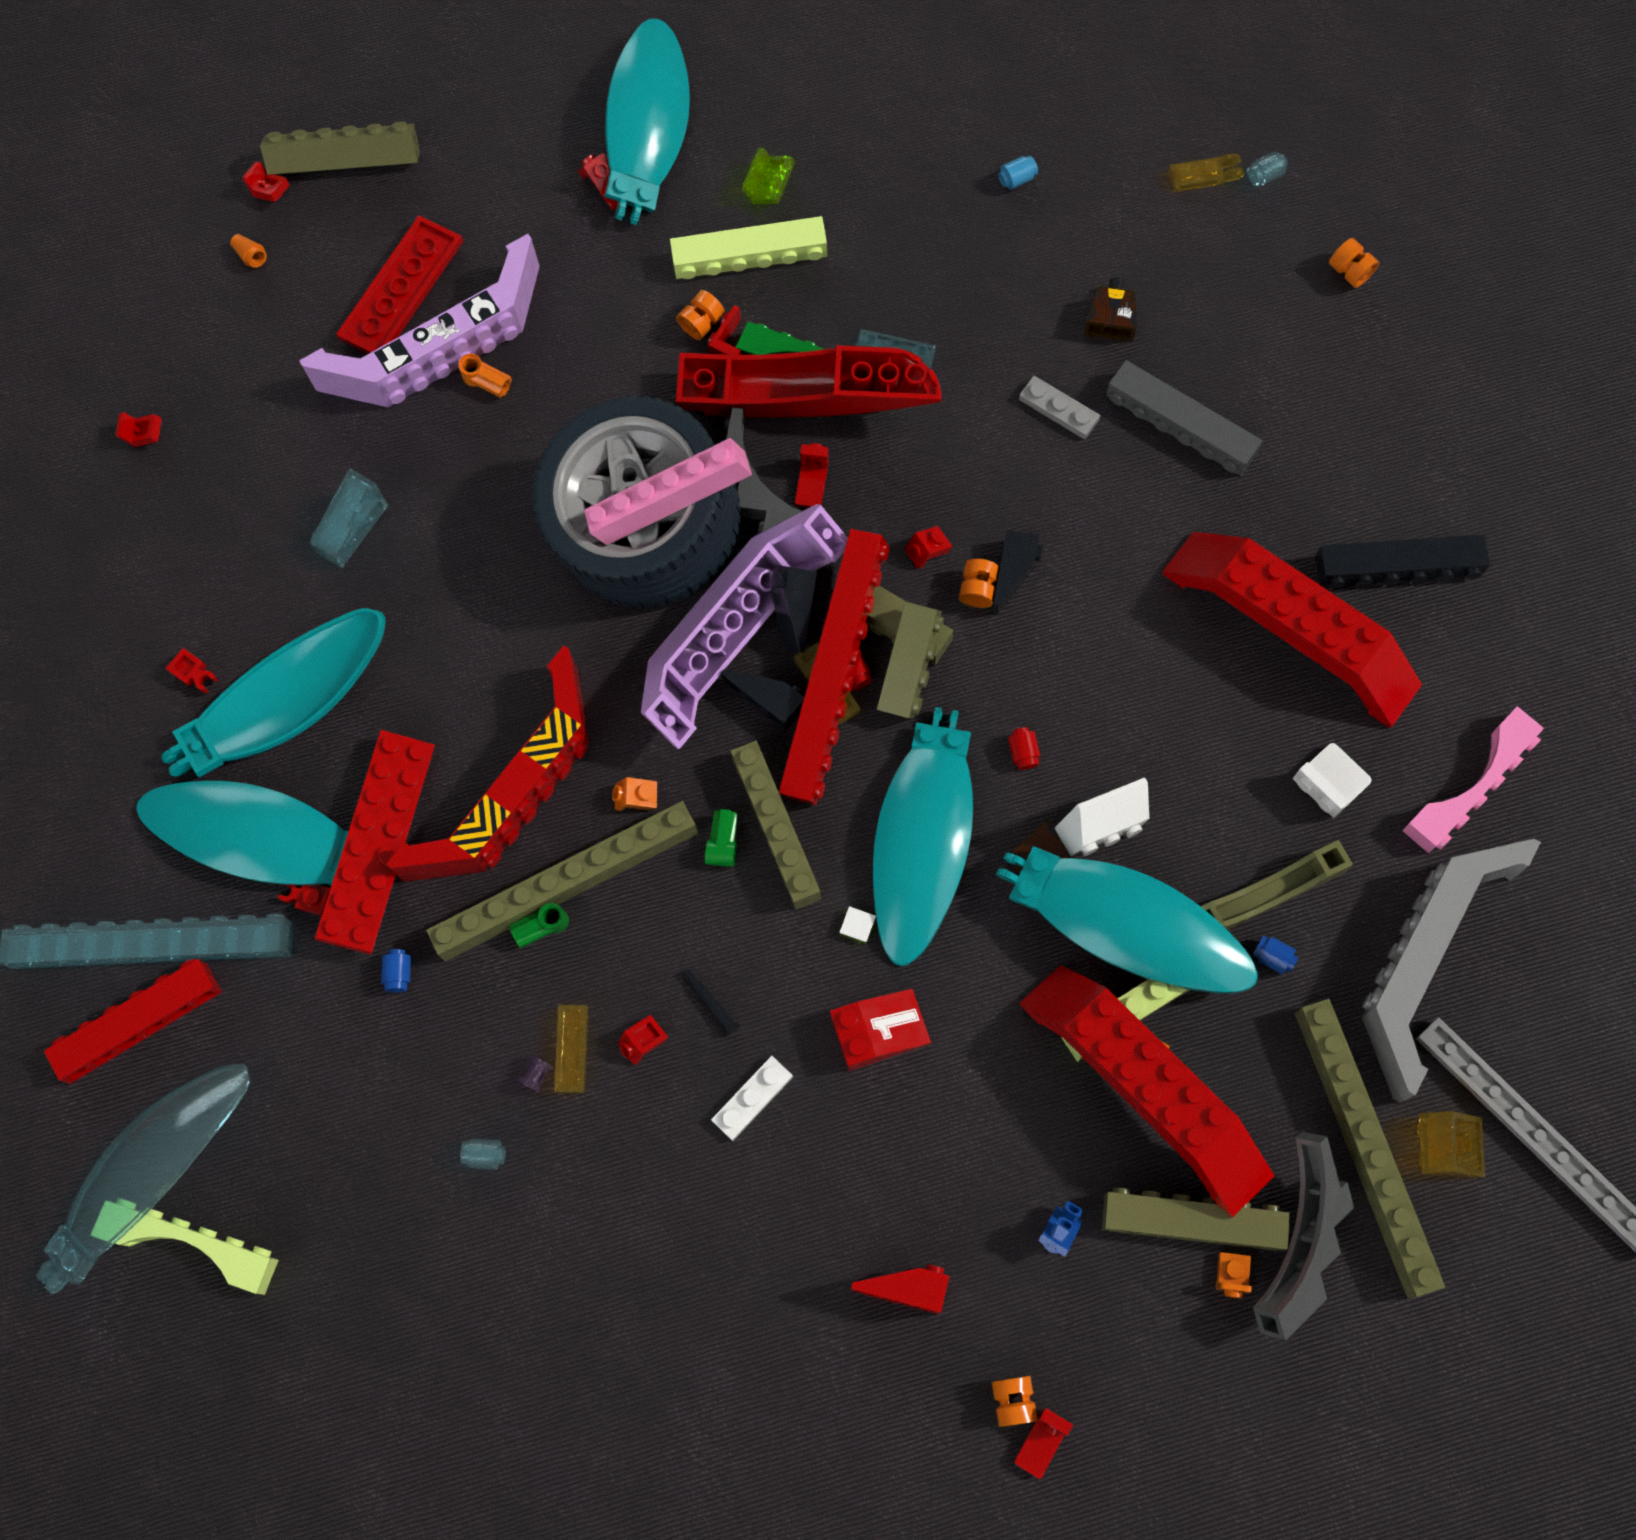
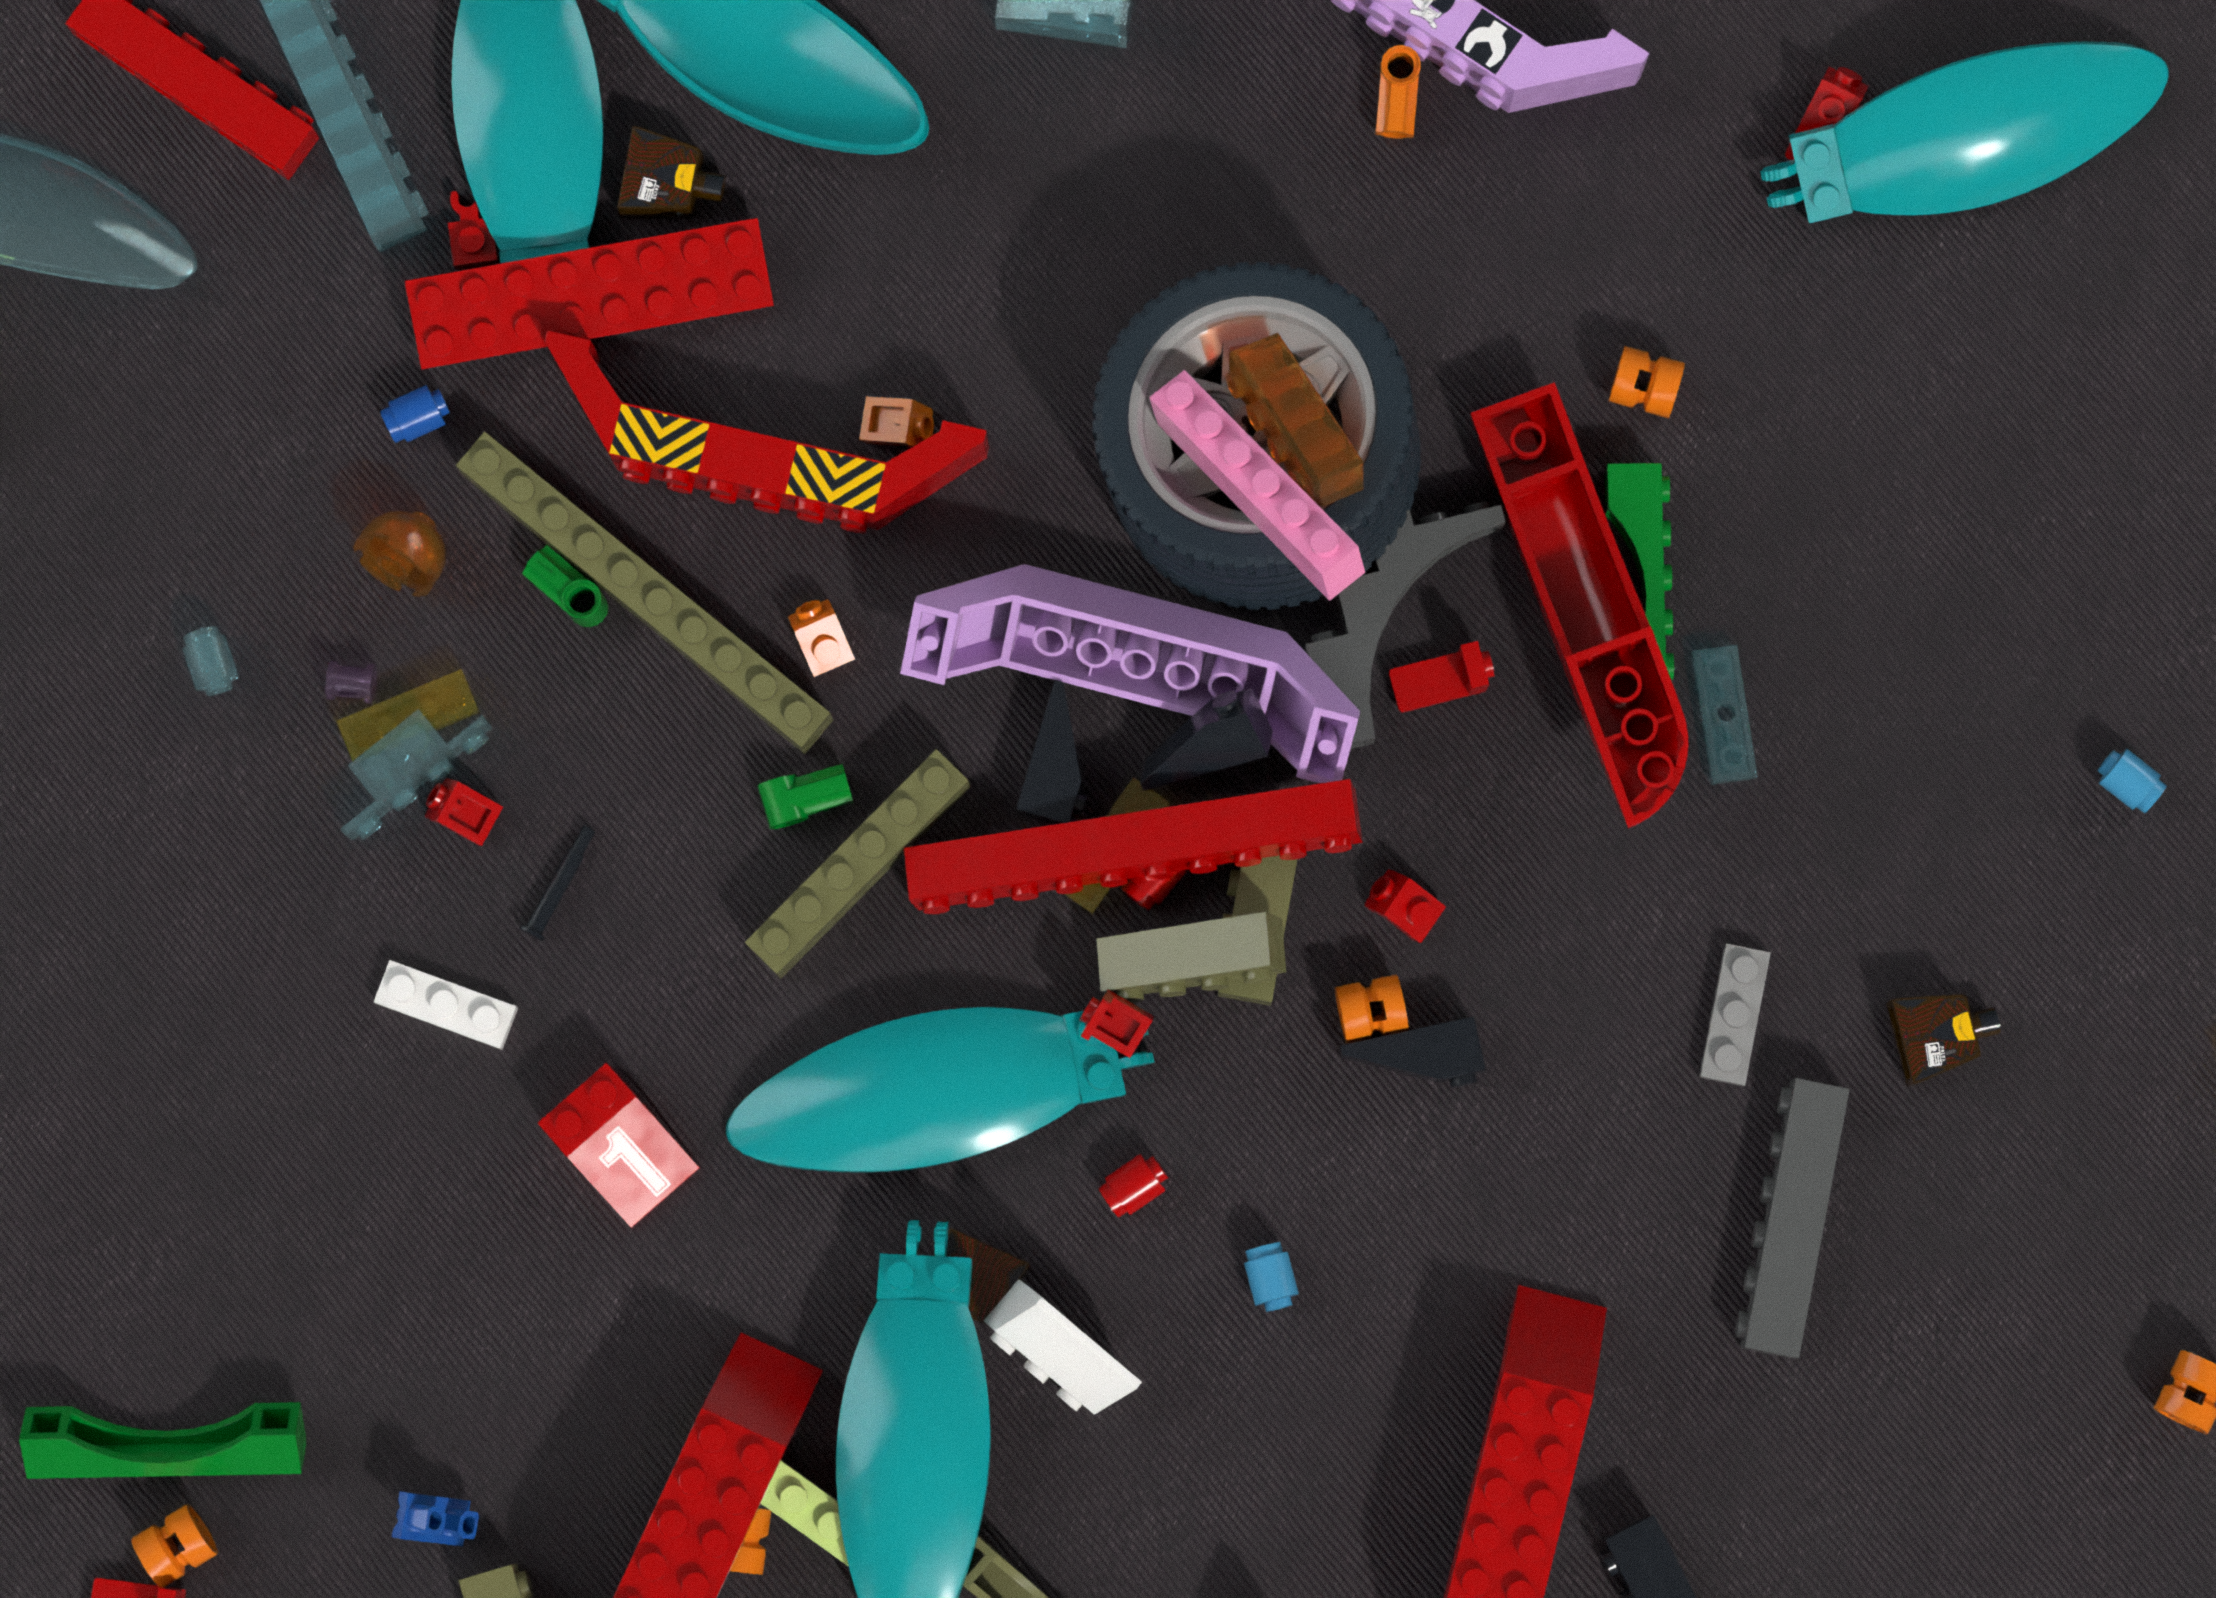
camera: 65 degrees right, 10 degrees up
(332, 774) = (664, 178): none -> torso
(473, 1010) = (403, 550): none -> clear orange cylinder
(533, 704) = (895, 422): none -> orange bracket
(597, 1061) = (403, 763): none -> clear light blue bracket
(638, 460) = (1294, 420): none -> clear orange brick
(717, 340) = (1617, 427): red bracket -> none
(749, 247) = (1802, 406): yellowish green brick -> none
(767, 177) = (1943, 379): clear neon green bracket -> none
(857, 925) = (760, 1048): white tile -> none
(913, 1288) = (264, 1342): red slope -> none
(928, 1436) = (77, 1445): none -> green arch
(930, 715) = (1115, 1022): none -> red bracket
(1106, 695) = (1270, 1276): none -> dark azure brick

